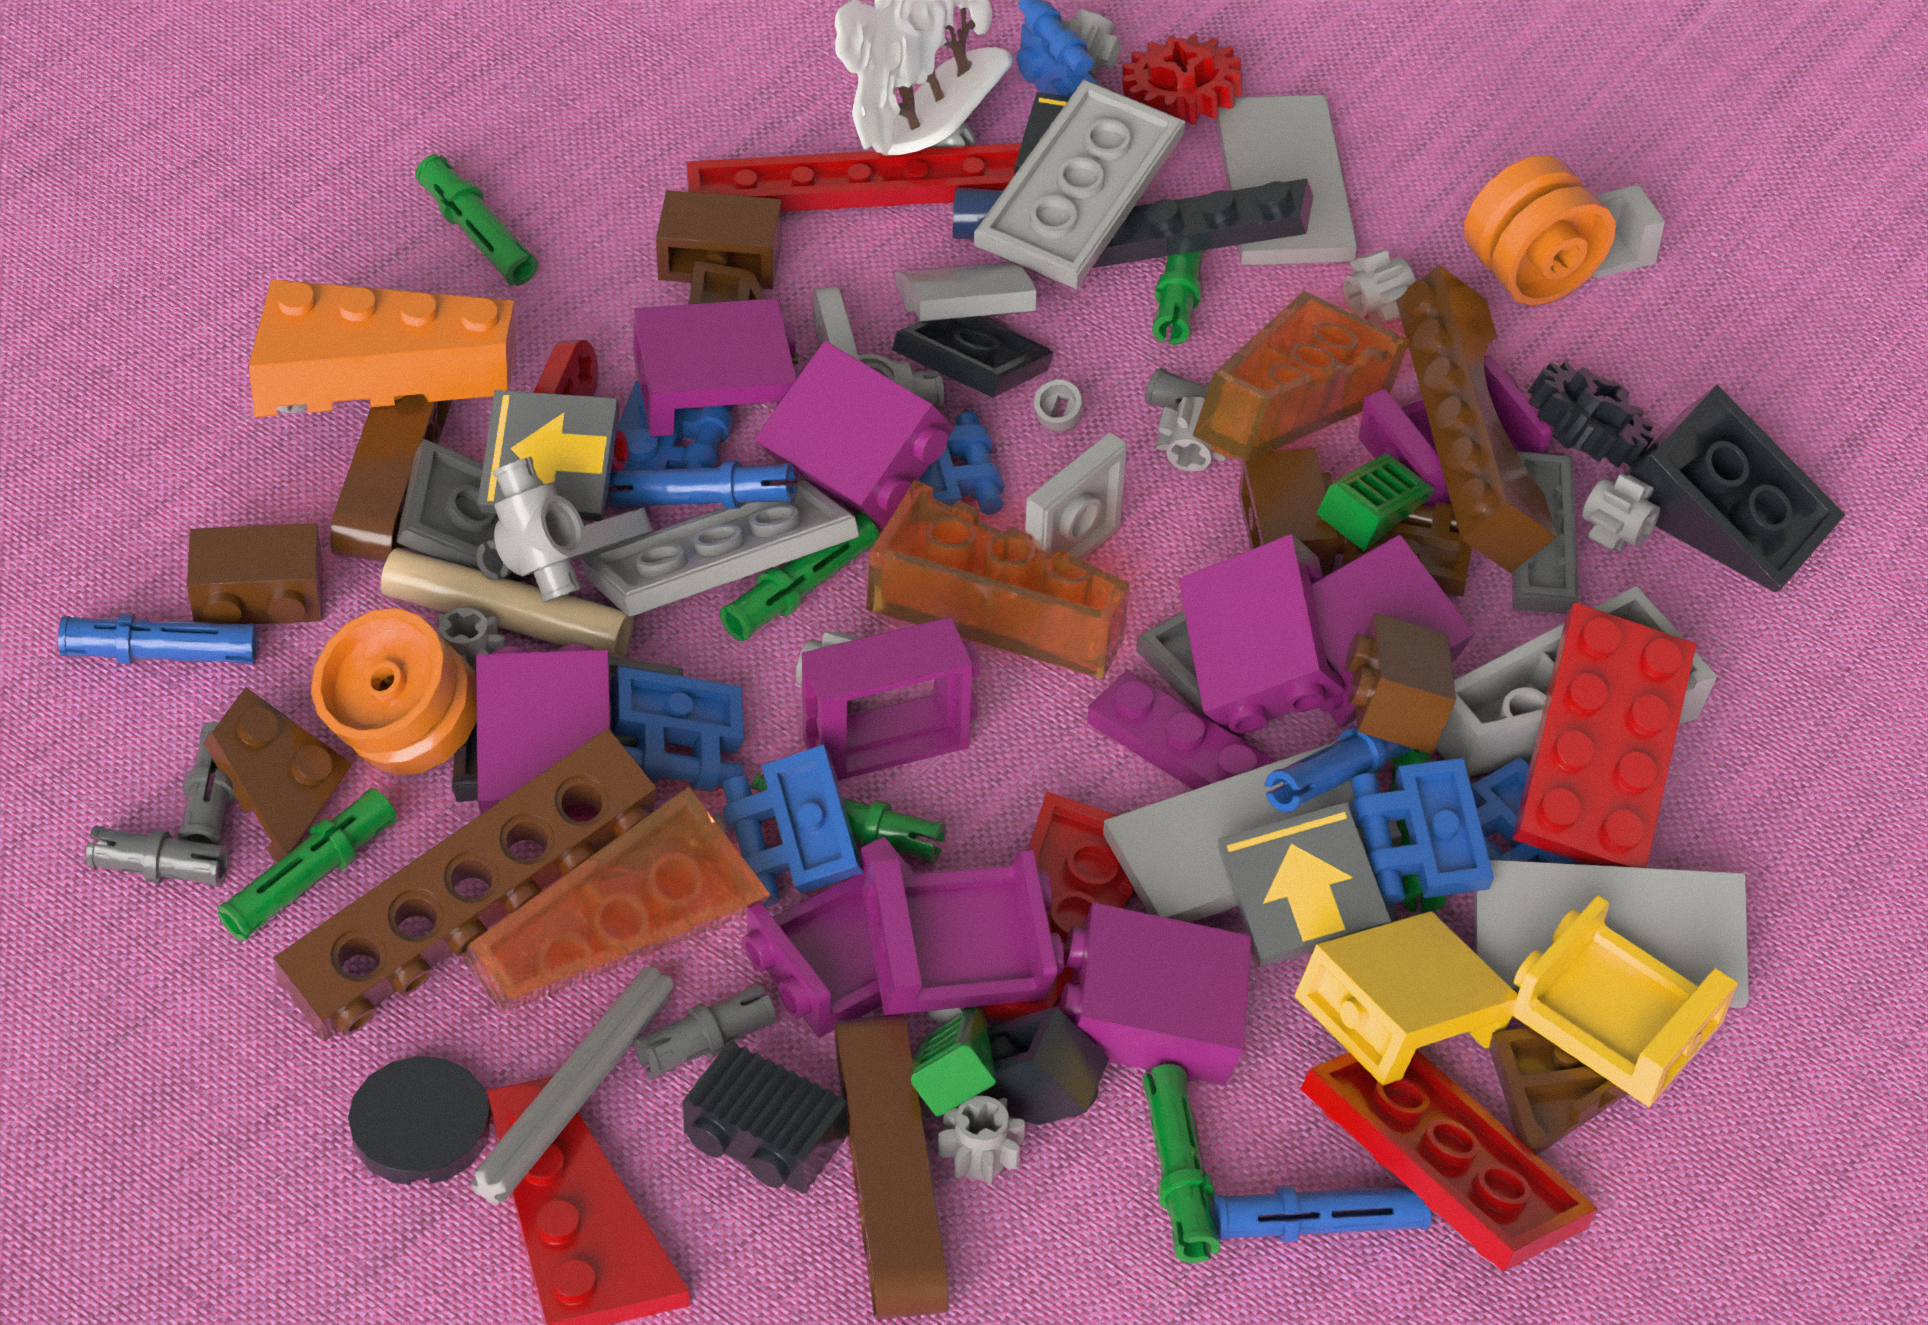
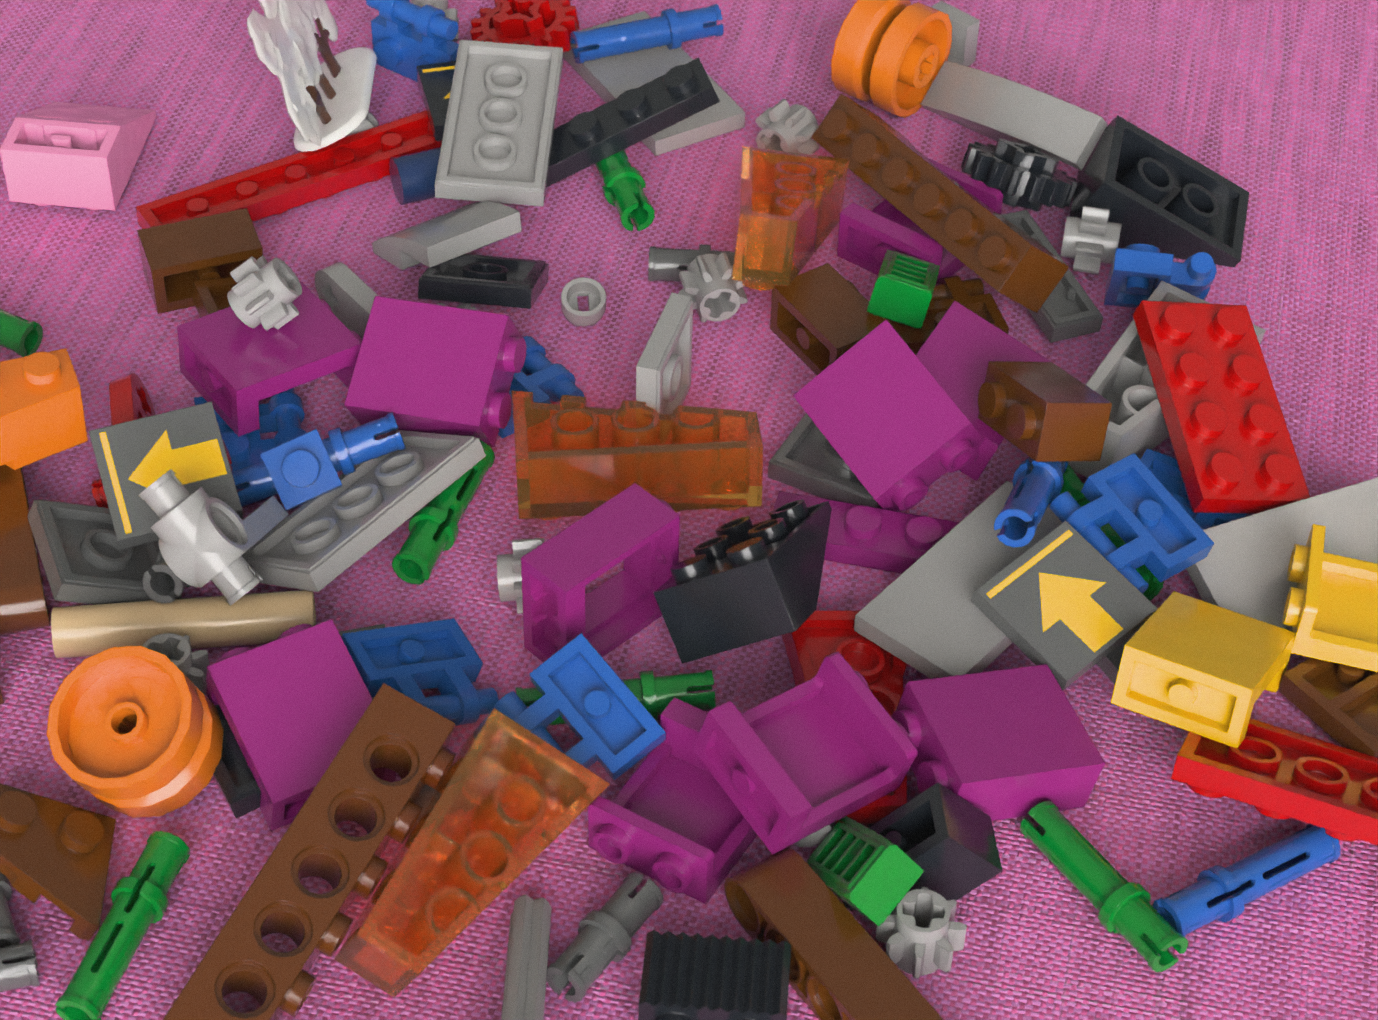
camera: 25 degrees left, 5 degrees down
(663, 81) = (74, 154): none -> bright pink slope
(681, 491) = (301, 470): none -> plate
(721, 303) = (264, 293): none -> light grey gear
(1024, 749) = (747, 581): none -> black slope
(1302, 125) = (665, 30): none -> blue pin
(1629, 564) = (1142, 267): none -> blue plate
(1632, 344) = (1014, 113): none -> light grey slope

